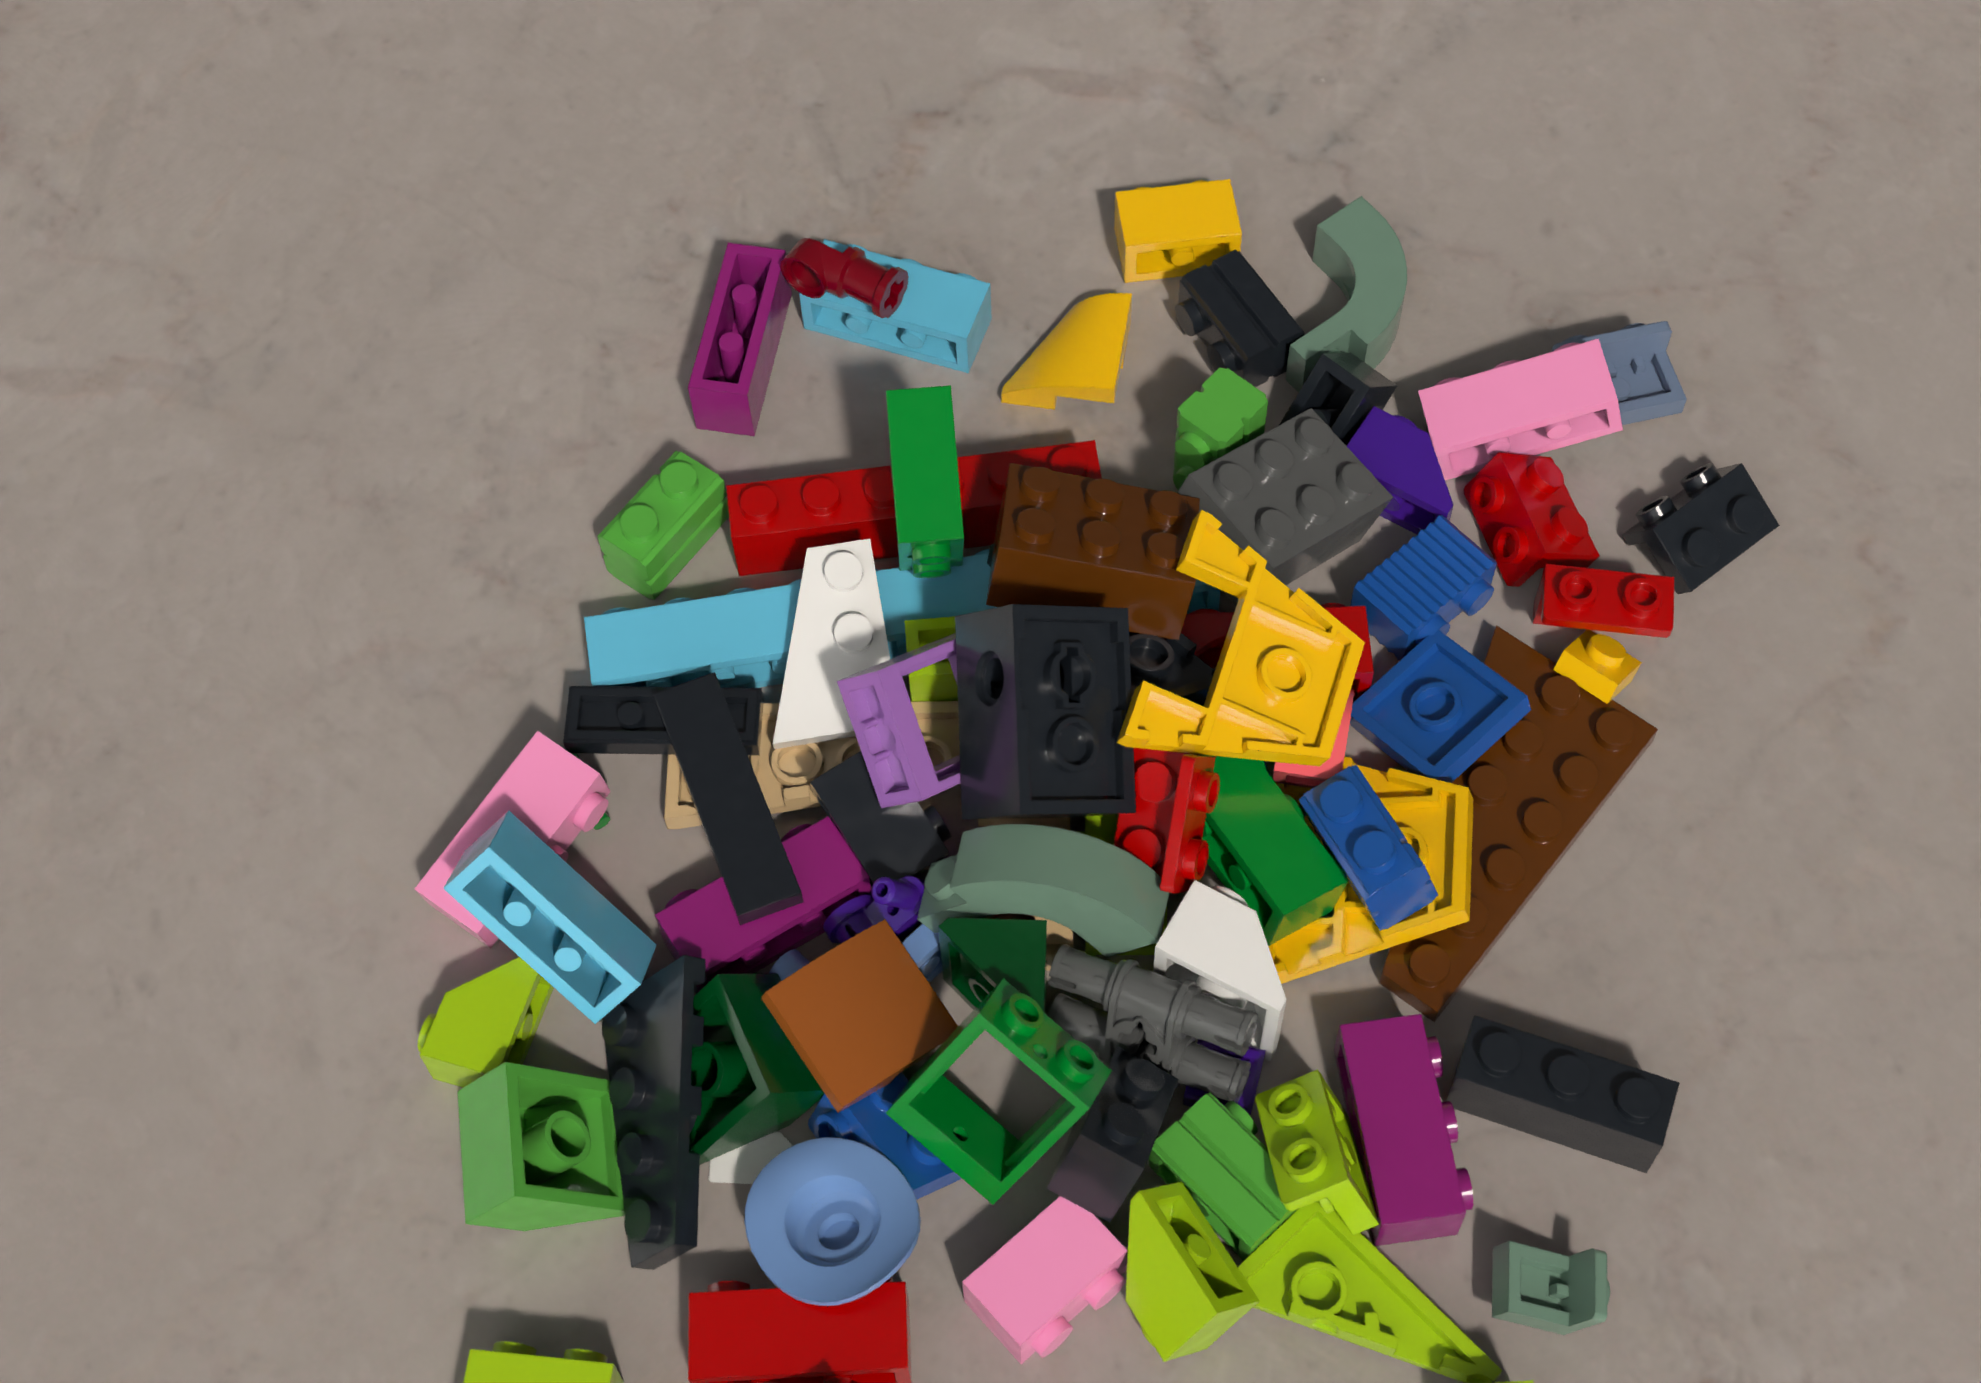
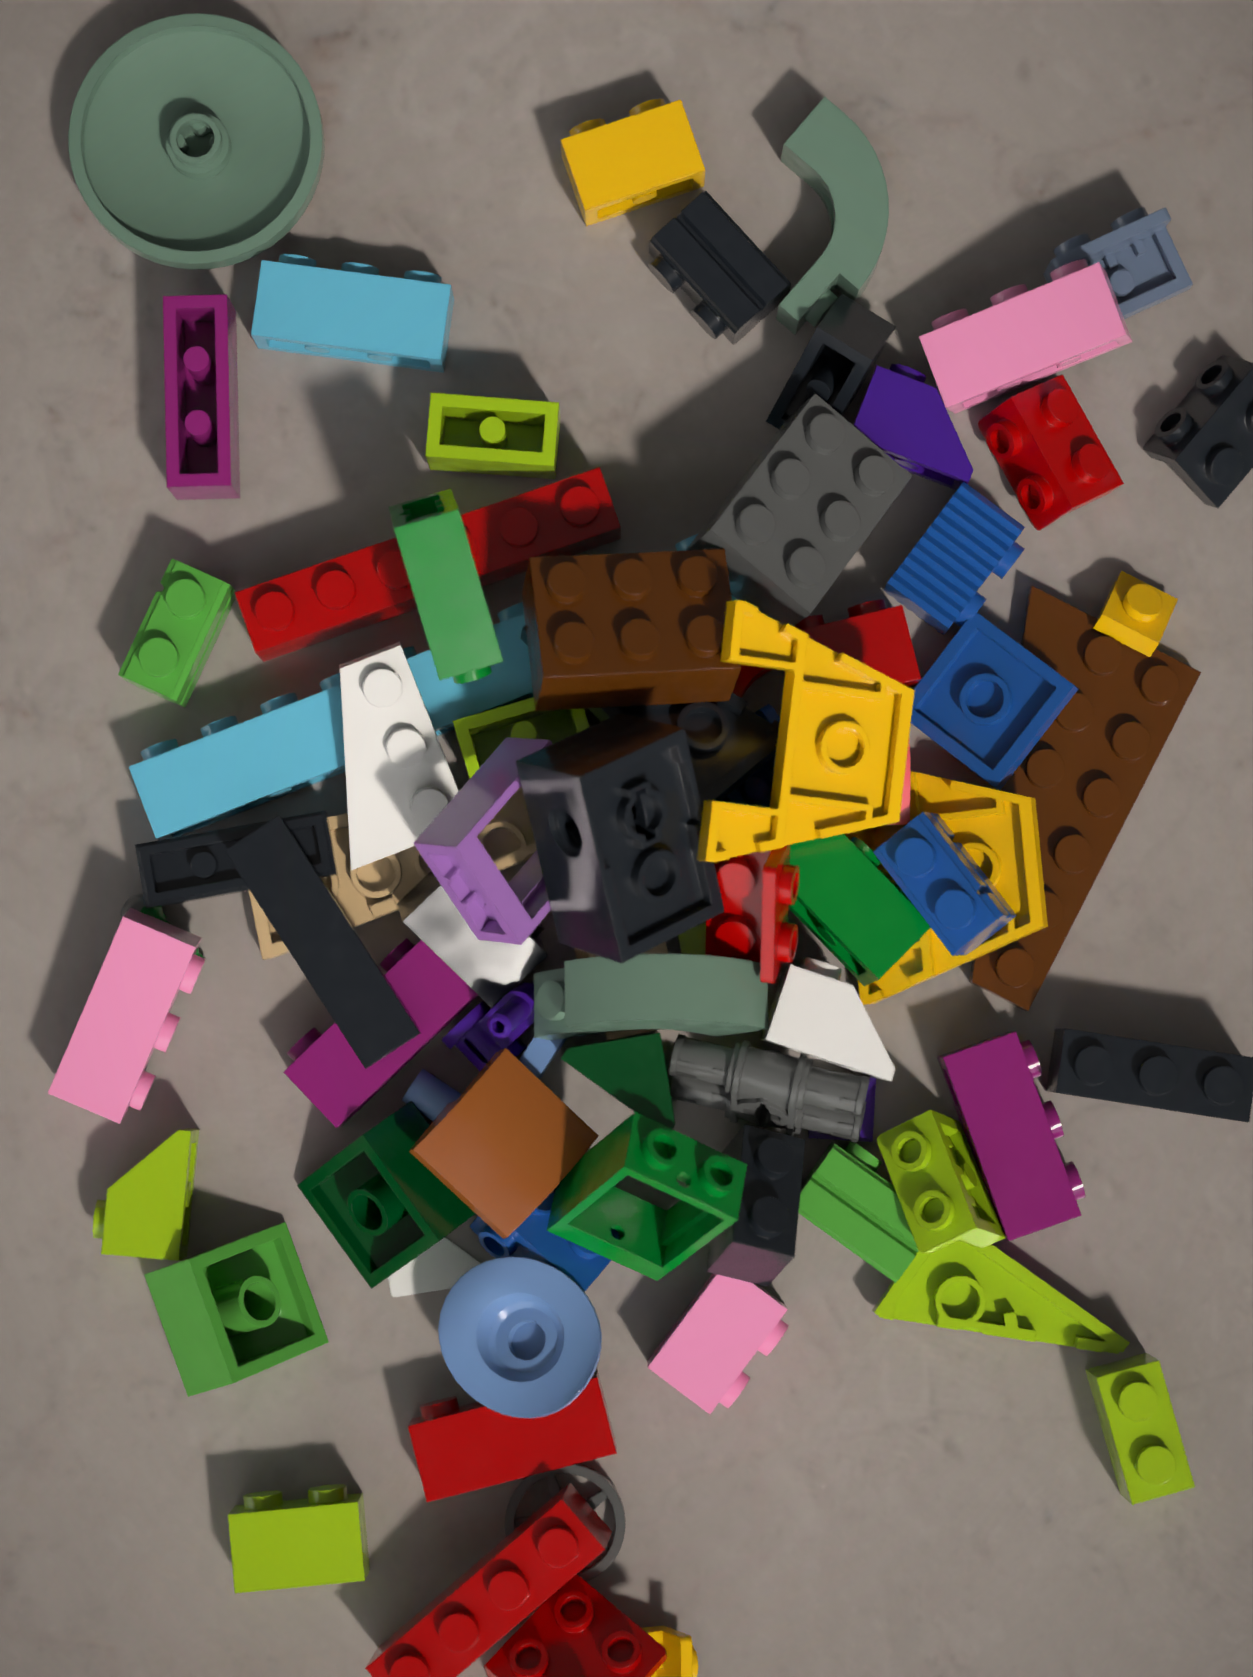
camera: 15 degrees left, 25 degrees up
(551, 917) = (189, 1105): medium azure brick -> none
(655, 1110) = (322, 1235): black wing -> none
(792, 151) = (196, 141): none -> sand green dish
(819, 269) = (306, 317): dark red connector -> none
(1004, 405) = (493, 435): none -> lime brick
(1077, 357) = (556, 339): yellow slope -> none
(1180, 1274) = (838, 1317): lime slope -> none
(1216, 422) = (724, 437): bright green brick -> none
(1549, 1287) = (1161, 1257): sand green bracket -> none
(1605, 601) = (1137, 556): red bracket -> none

